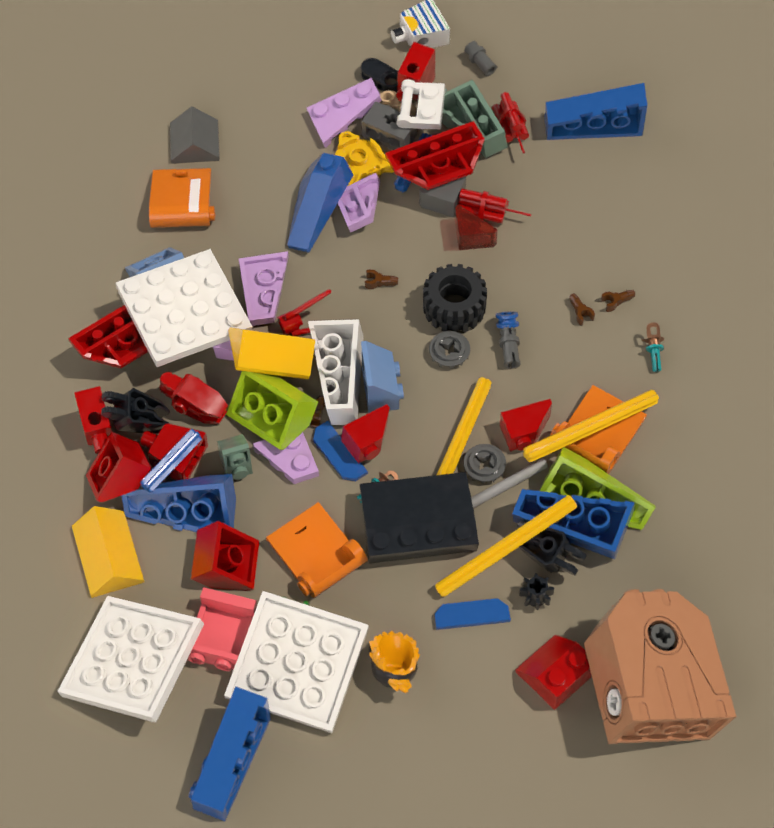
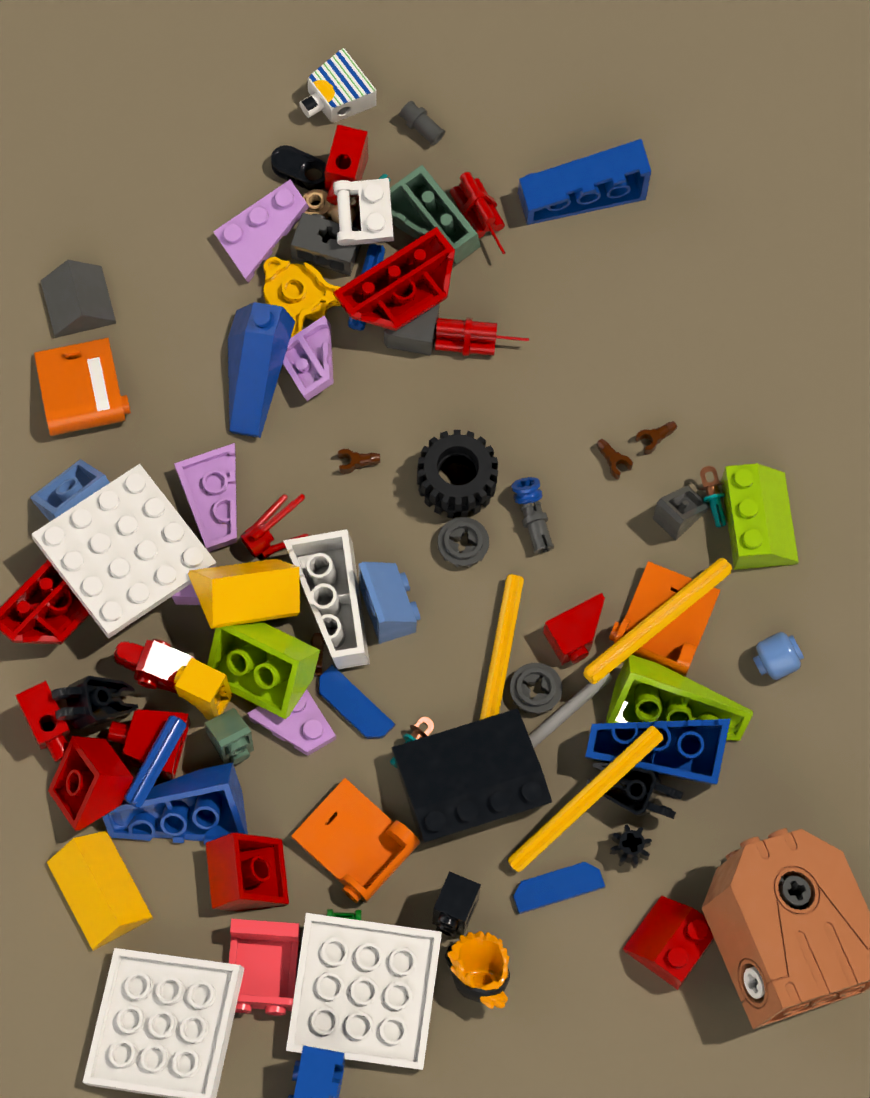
camera: 15 degrees left, 10 degrees up
(222, 414) = (203, 688): none -> yellow arch
(366, 434) = (386, 679): red slope -> none
(384, 606) = (455, 905): none -> black brick
(473, 231) = (459, 374): clear red slope -> none
(624, 353) = (679, 511): none -> dark grey slope
(684, 470) = (778, 656): none -> medium blue head
(688, 367) = (758, 517): none -> lime slope

